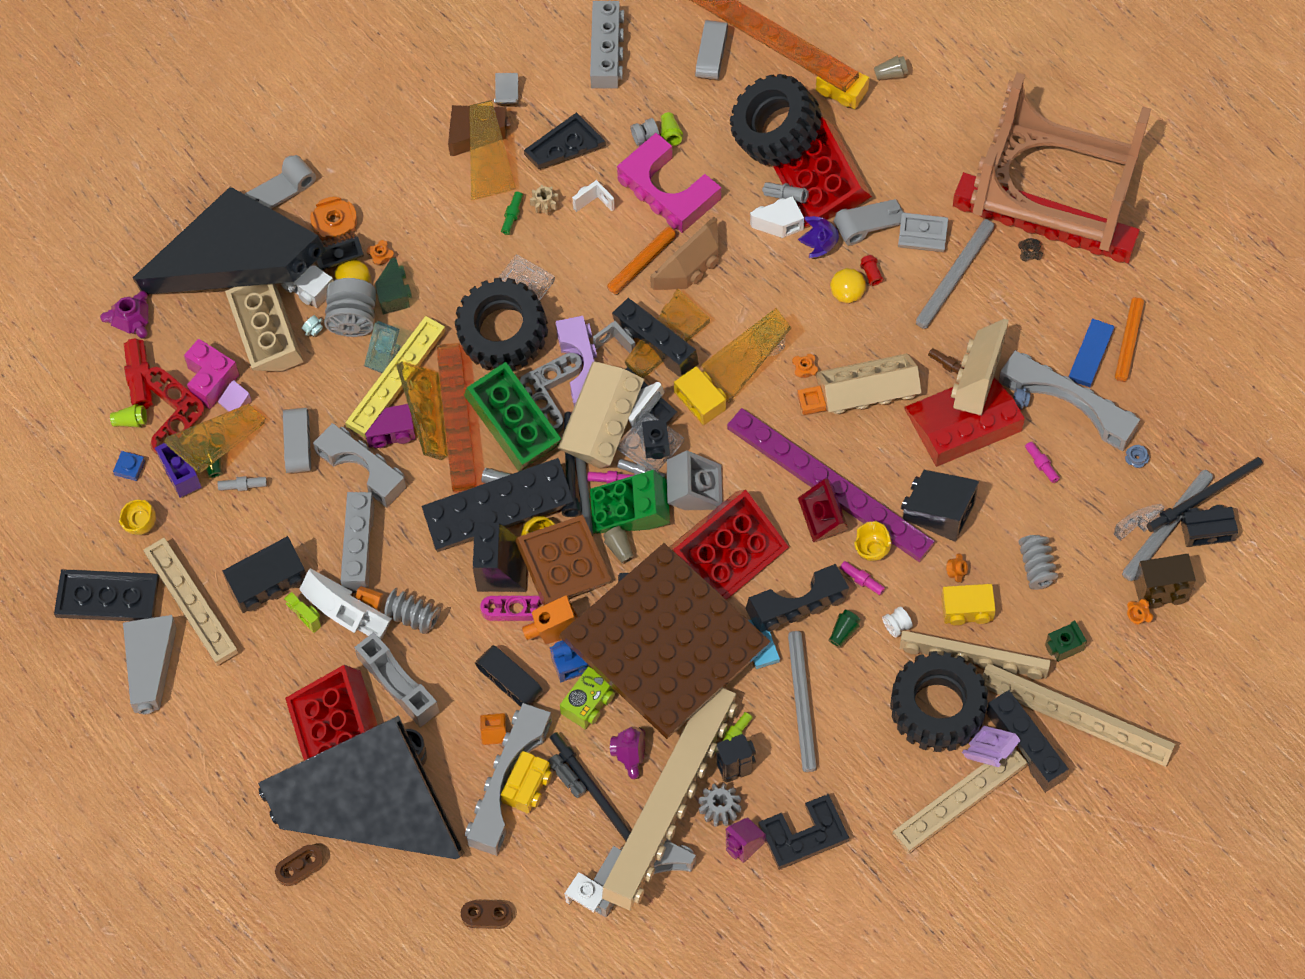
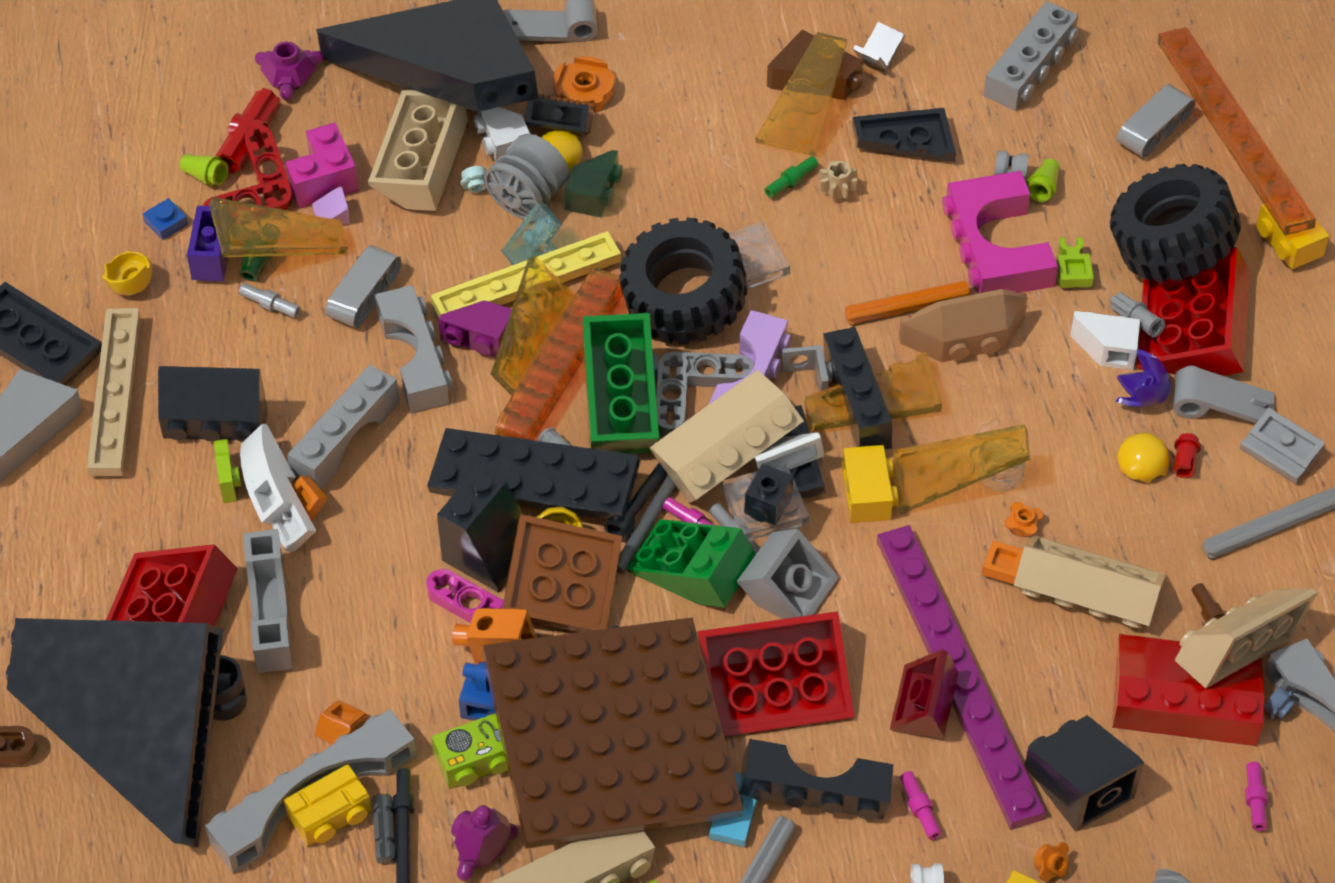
camera: 30 degrees right, 10 degrees down
(383, 257) = (609, 141): orange plate -> none
(411, 613) = (345, 536): light grey piece -> none
(508, 676) = (401, 673): black beam -> none
(589, 193) = (895, 200): white bracket -> none
(618, 543) = (645, 596): dark tan cone -> none
(727, 179) = (1073, 266): none -> lime plate
(844, 627) = (853, 851): dark green cone -> none
(873, 541) = (963, 766): yellow hair -> none

